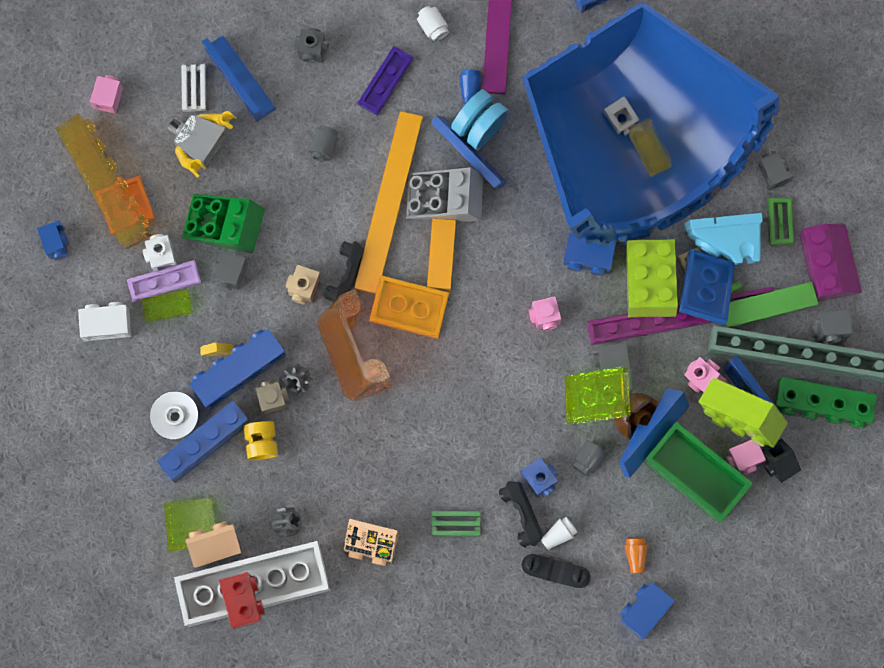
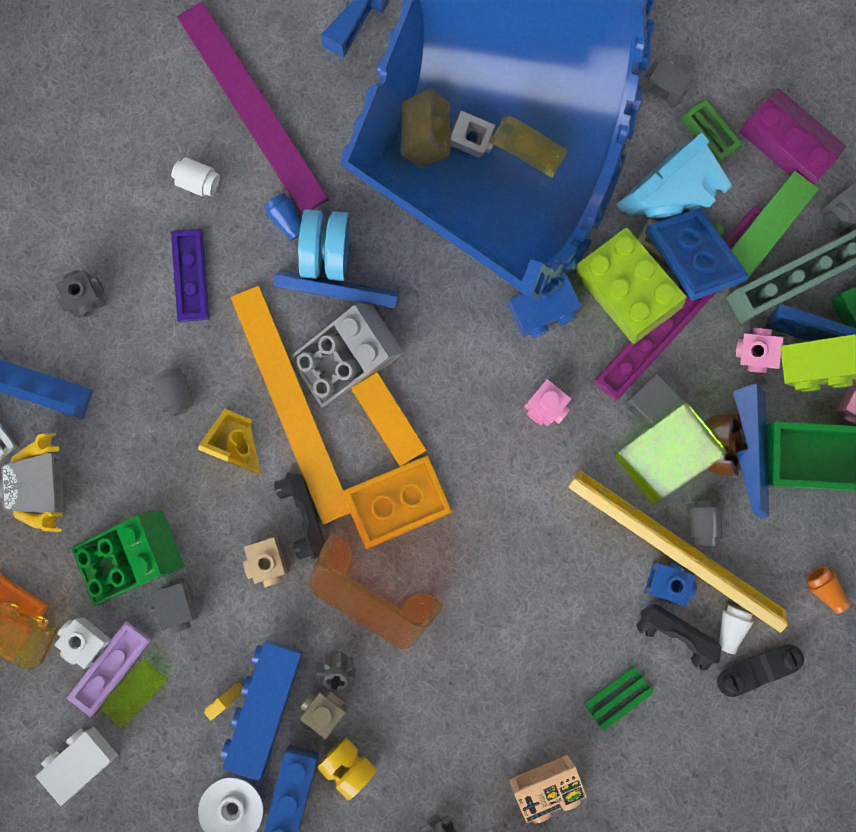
camera: 45 degrees left, 5 degrees up
(336, 198) = (232, 441): none -> yellow slope
(560, 461) = (679, 550): none -> yellow tile
(594, 92) = (425, 128): none -> clear yellow brick

